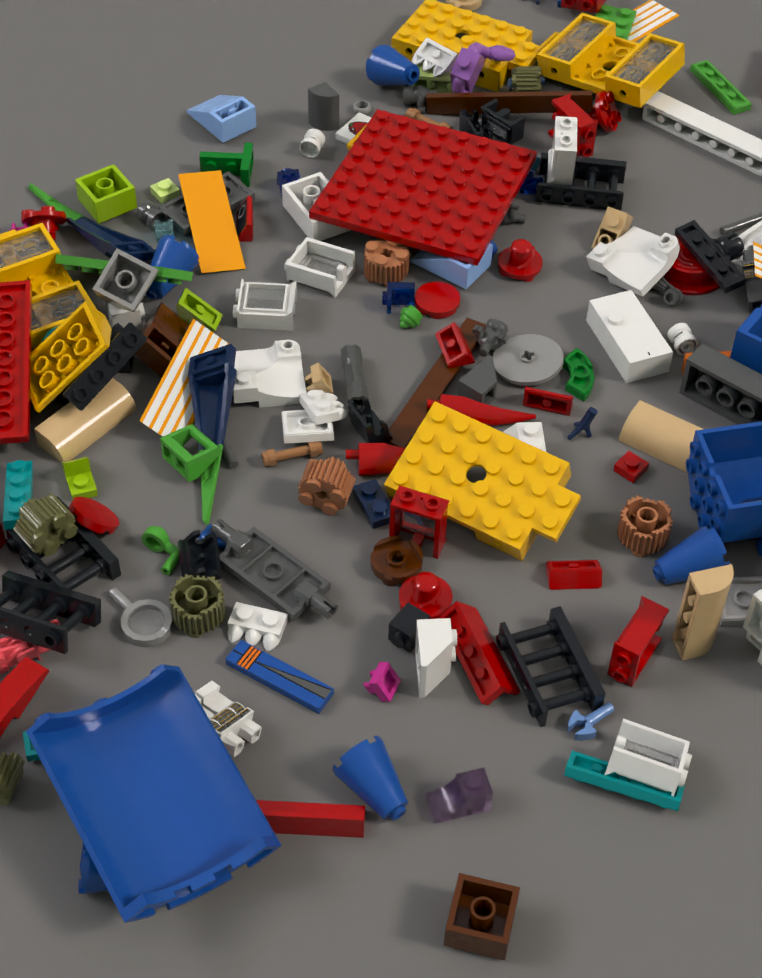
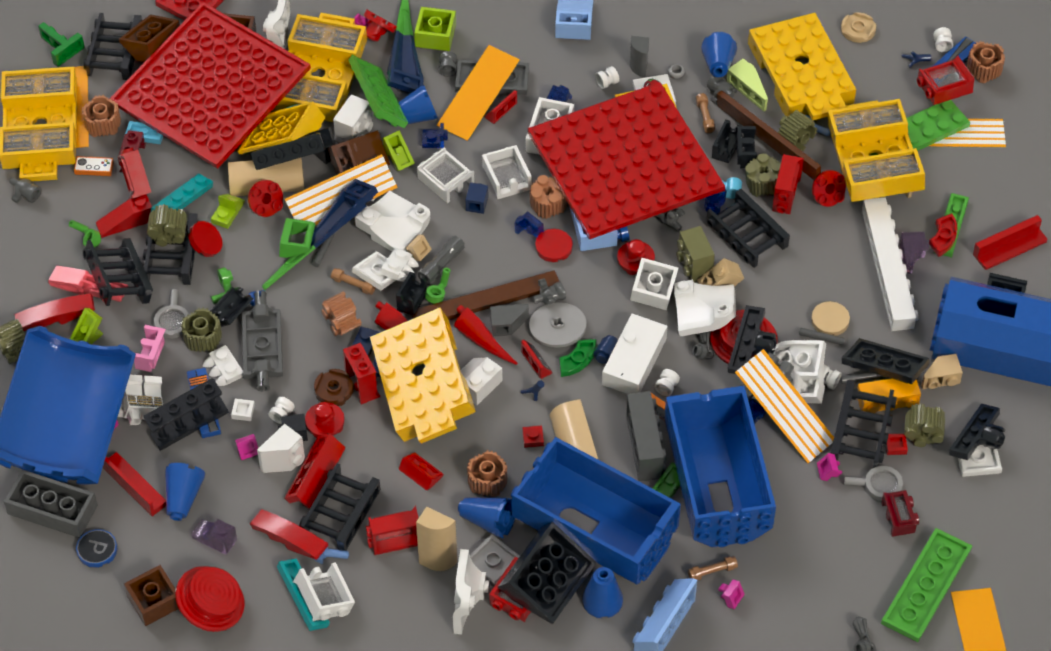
camera: 45 degrees right, 5 degrees up
(61, 690) = (87, 327): none -> lime slope
(112, 436) = (265, 198): none -> red plate
(124, 281) = (349, 102): light grey slope -> none
(159, 649) = (151, 350): none -> bright pink window
(163, 228) = (444, 79): clear light blue wheel -> none
(165, 190) = (478, 49): yellowish green plate -> none
(215, 282) = (434, 137): none -> clear blue bracket
(235, 163) = (542, 64): green bracket -> none
(244, 915) = (50, 503): none -> dark grey brick
(293, 694) = (186, 414): none -> black fence
(321, 304) = (477, 198): none -> dark blue brick
(332, 650) = (243, 409): none -> white plate
(347, 922) = (96, 548): none -> black tile
(373, 618) = (282, 408): none -> white wheel
(385, 408) = (435, 293): none -> bright green plate
(410, 317) = (521, 245): bright green plate -> none
(435, 56) = (754, 66): white plate -> none
(454, 346) = (521, 284): red slope -> none
(470, 63) = (763, 88): medium lavender torso -> none
(535, 731) = (288, 533): none -> red slope
(539, 131) = (762, 175): none -> olive brick
(547, 863) = (210, 598): none -> red piece
(563, 151) = (735, 192): white window -> none
(570, 268) = (654, 283): none -> white brick
(574, 222) = (694, 253): none -> olive brick
(598, 348) = (605, 349): none -> dark blue brick
(723, 111) = (913, 248): none -> clear purple arch
(729, 90) = (945, 235): none -> red tile
(731, 206) = (830, 318): none -> tan tile

